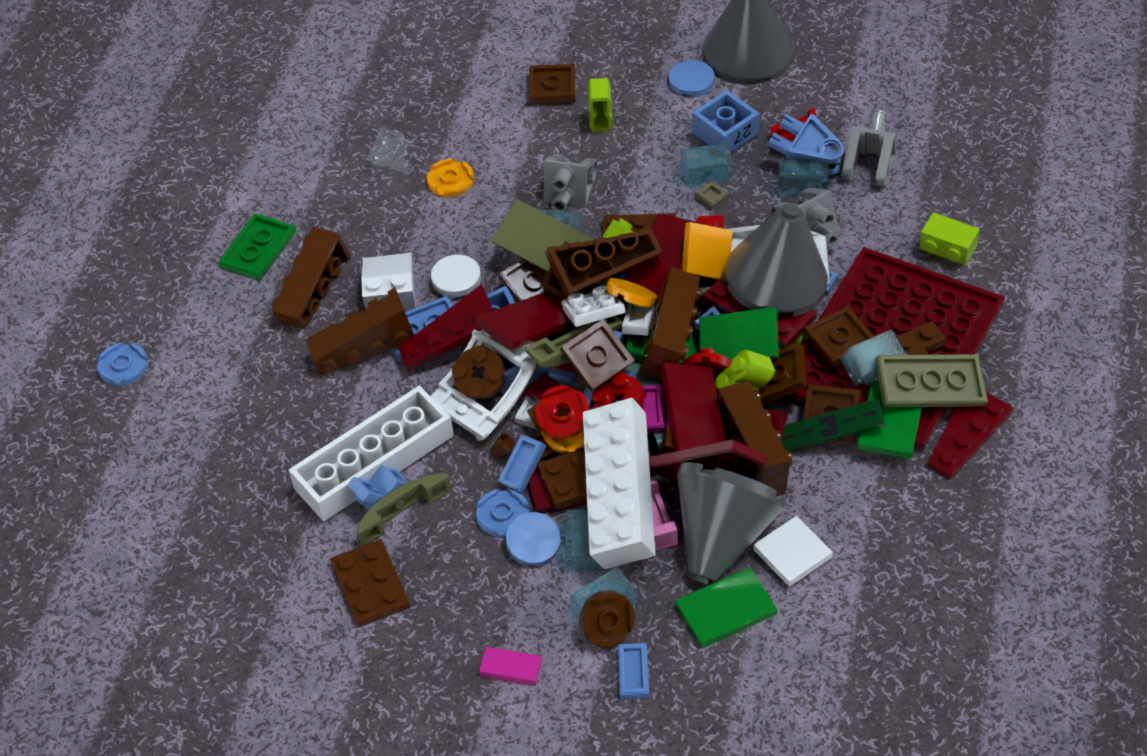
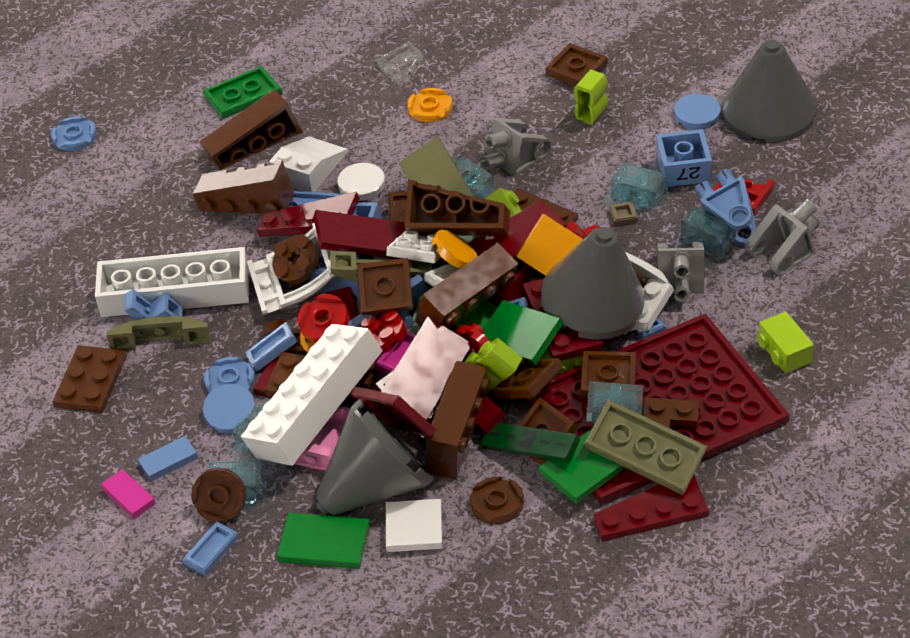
camera: 35 degrees right, 5 degrees down
(516, 614) = (168, 458): none -> medium blue tile
(837, 500) = (491, 506): none -> reddish brown tile

